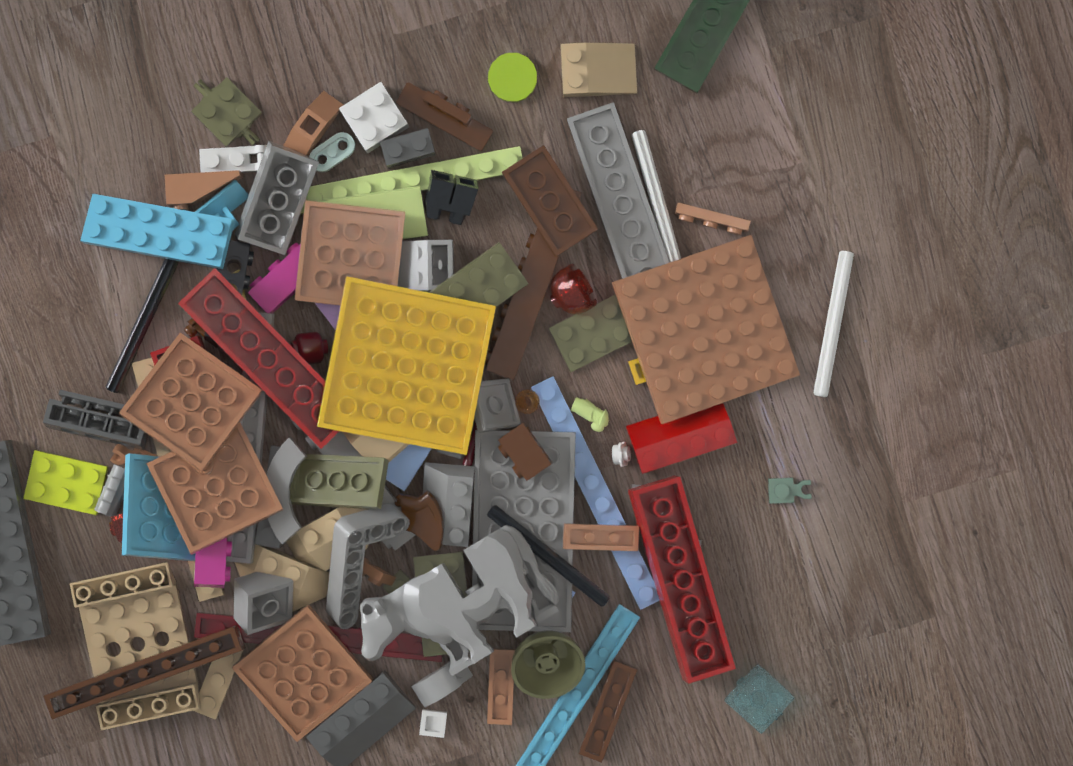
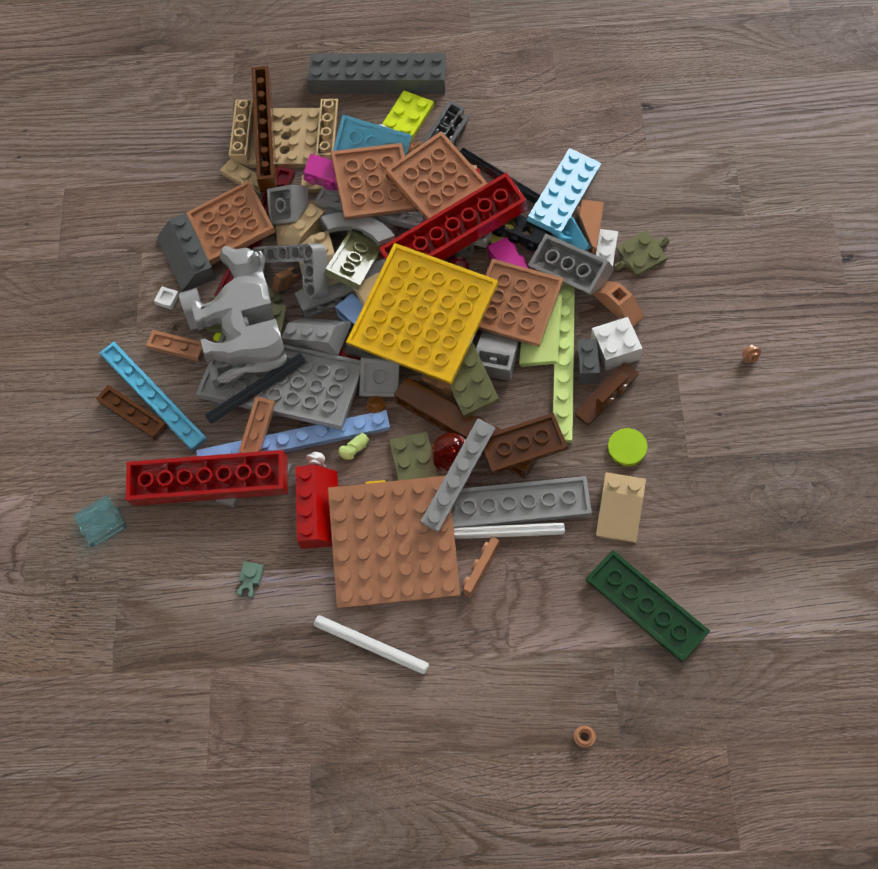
camera: 115 degrees right, 25 degrees down
(332, 152) = (598, 314): light aqua plate -> none
(424, 517) = (311, 311): reddish brown arm -> none
(450, 195) = (545, 380): black hips -> none
(524, 452) = (337, 385): reddish brown brick -> none
(547, 664) = (178, 372): olive piece -> none
(613, 268) = (457, 475): none -> light grey plate
(886, 51) = (584, 730): none -> nougat plate

